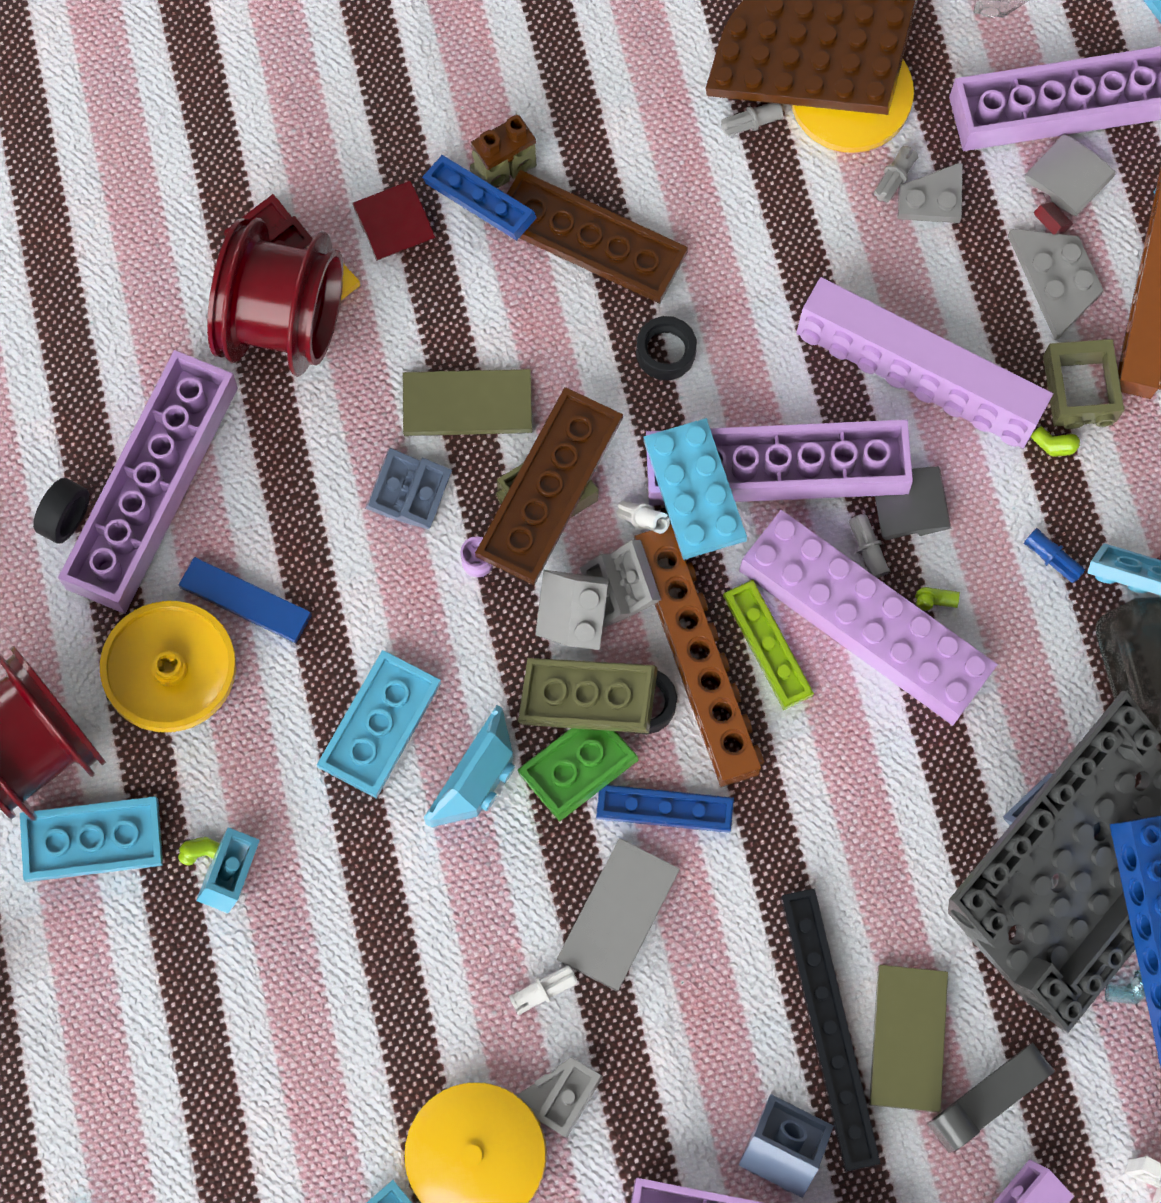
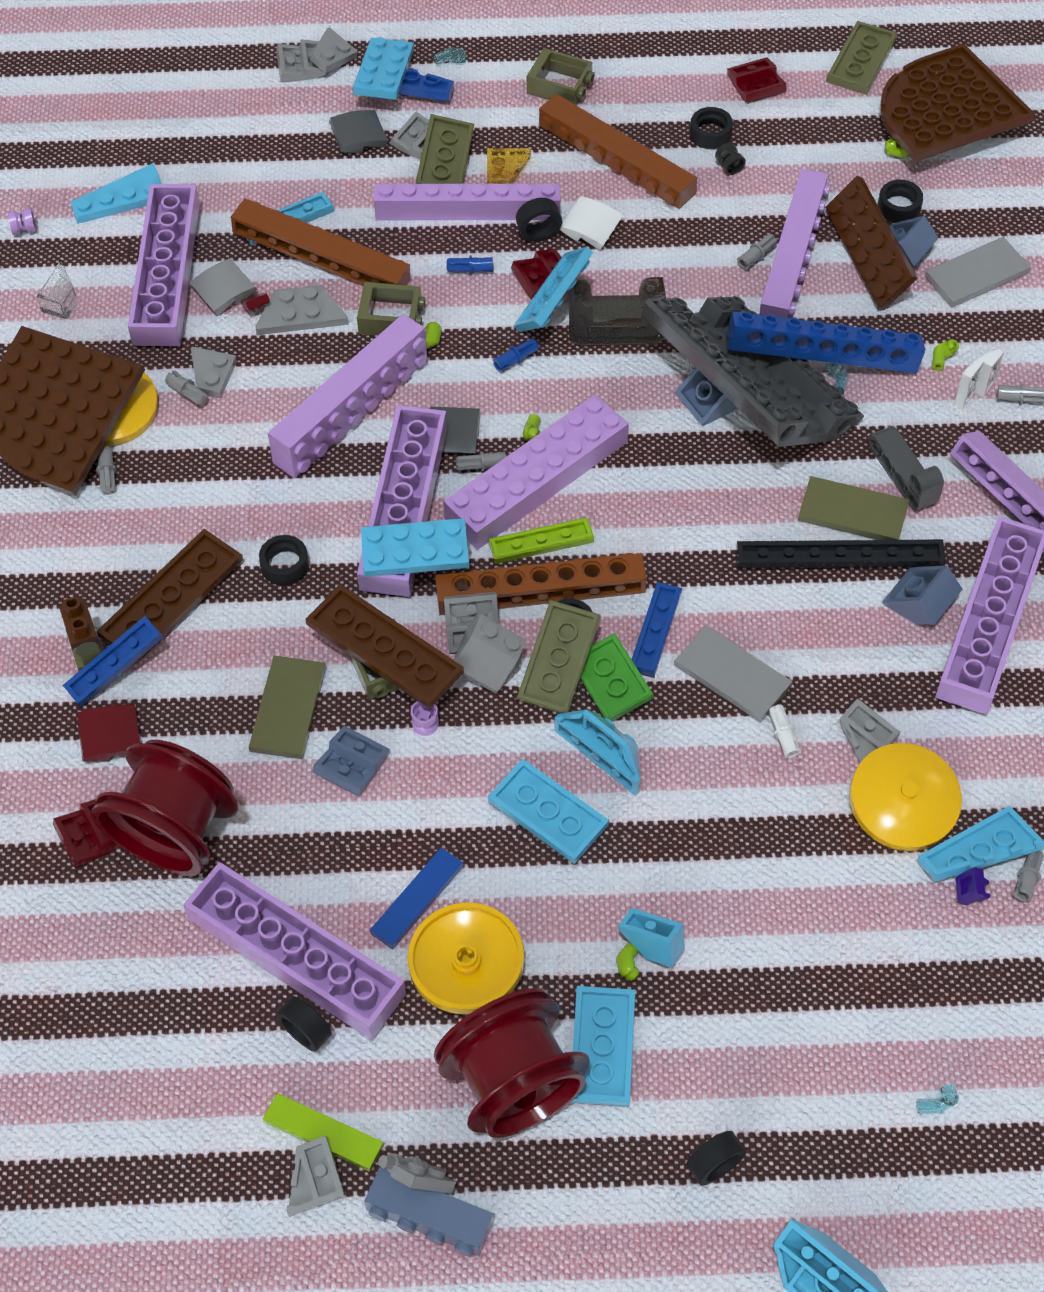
camera: 75 degrees left, 15 degrees down
(643, 516) = (422, 594): white axle -> none

